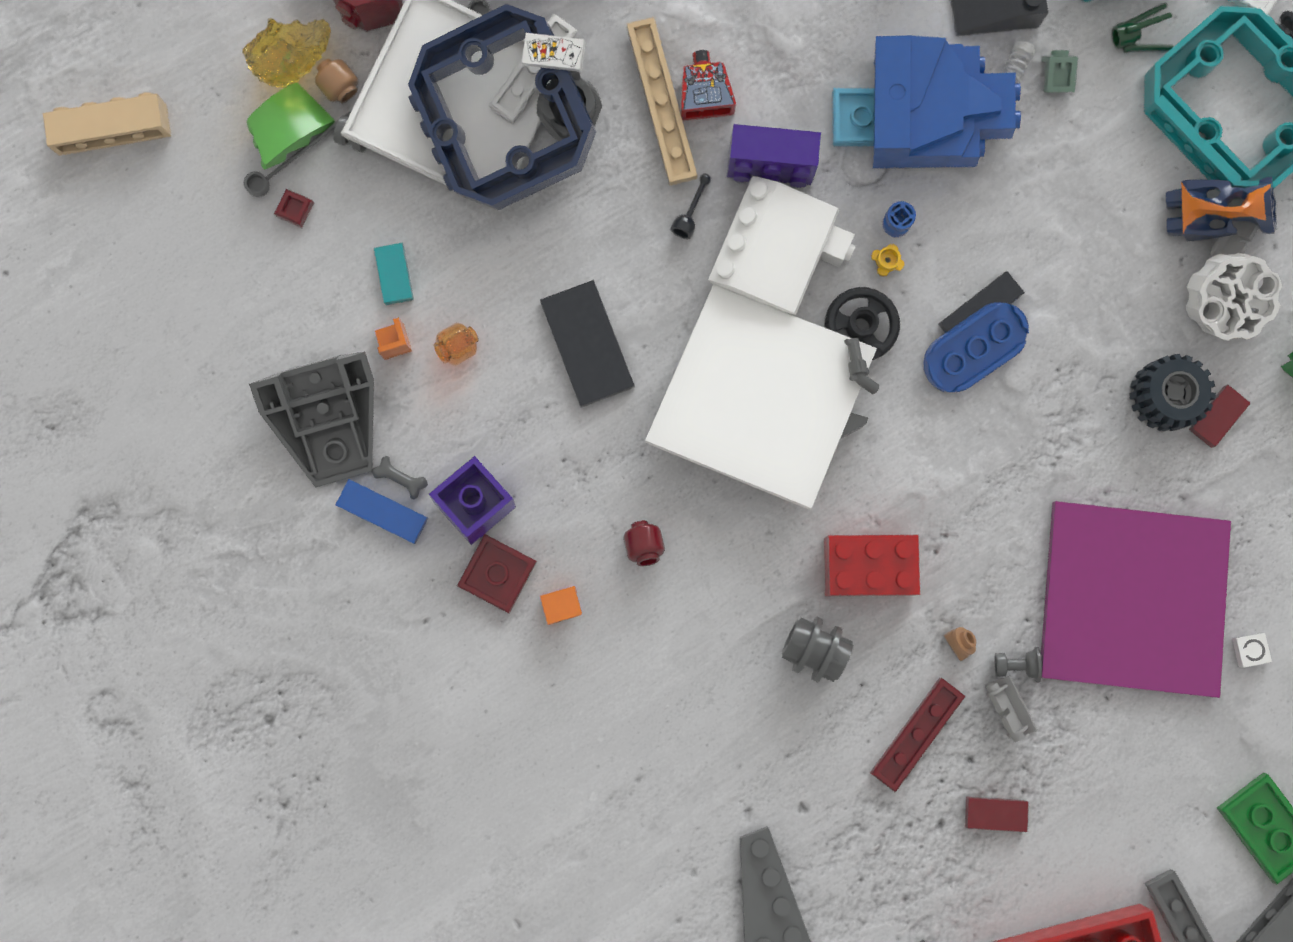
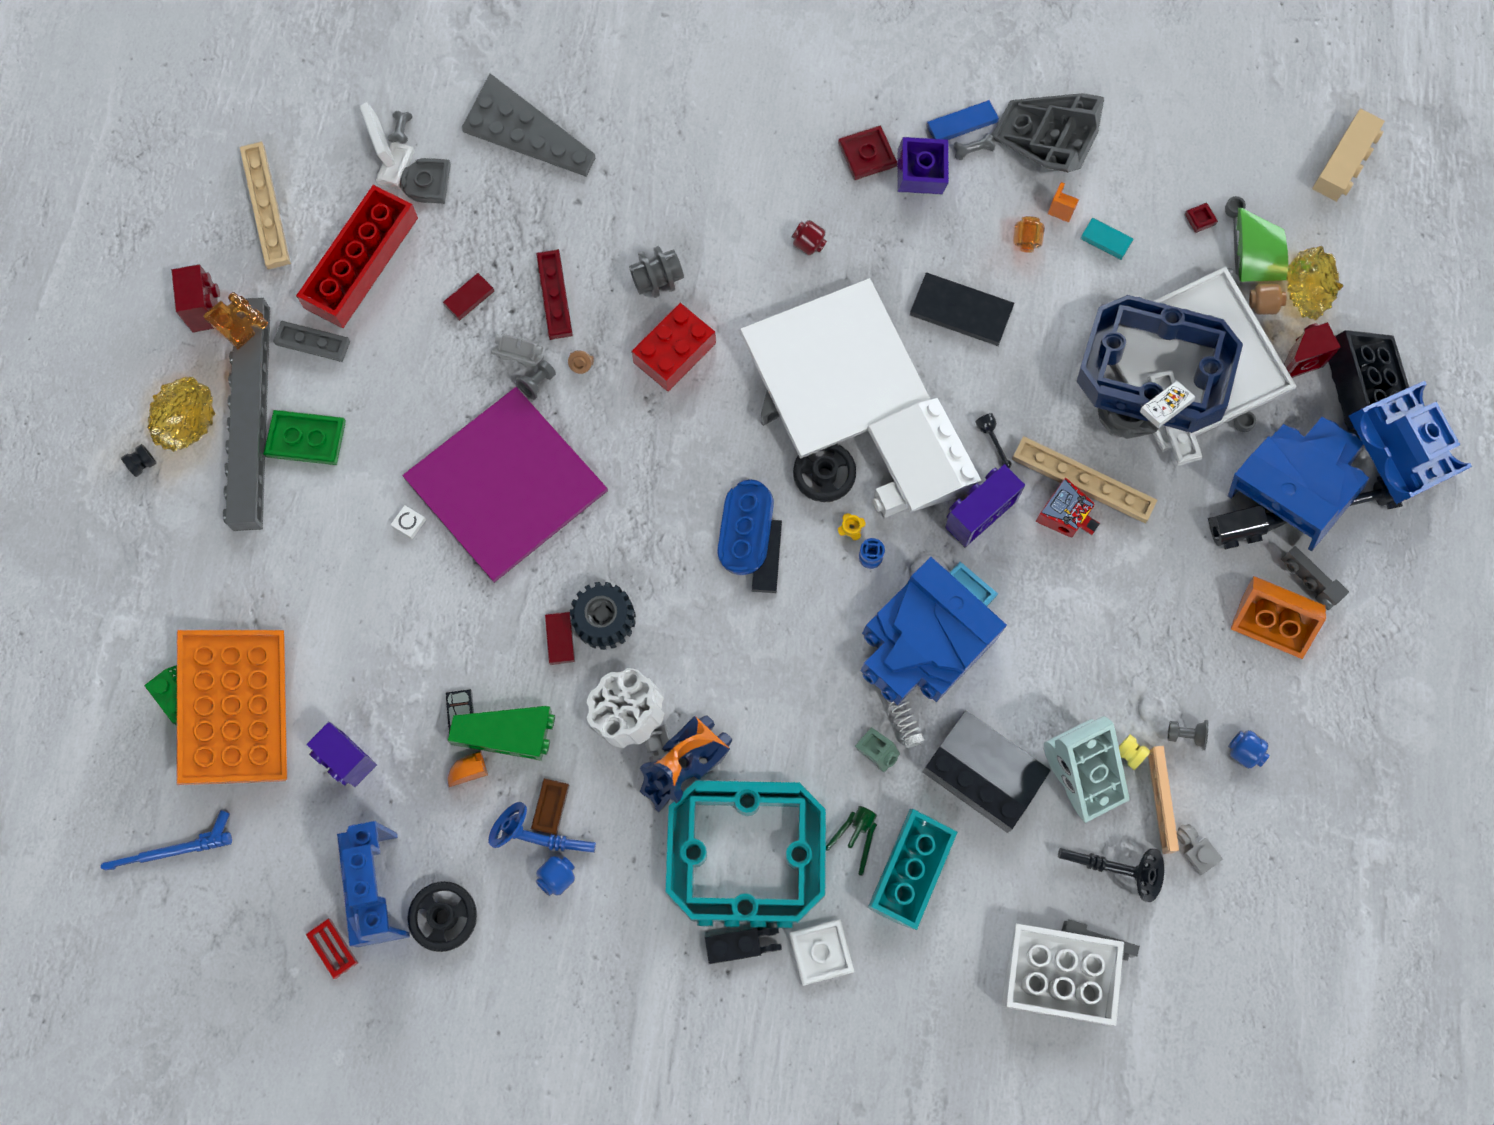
camera: 135 degrees right, 10 degrees down
(561, 605) = (817, 164): orange panel -> none
(858, 367) = (798, 429): dark grey piece -> none

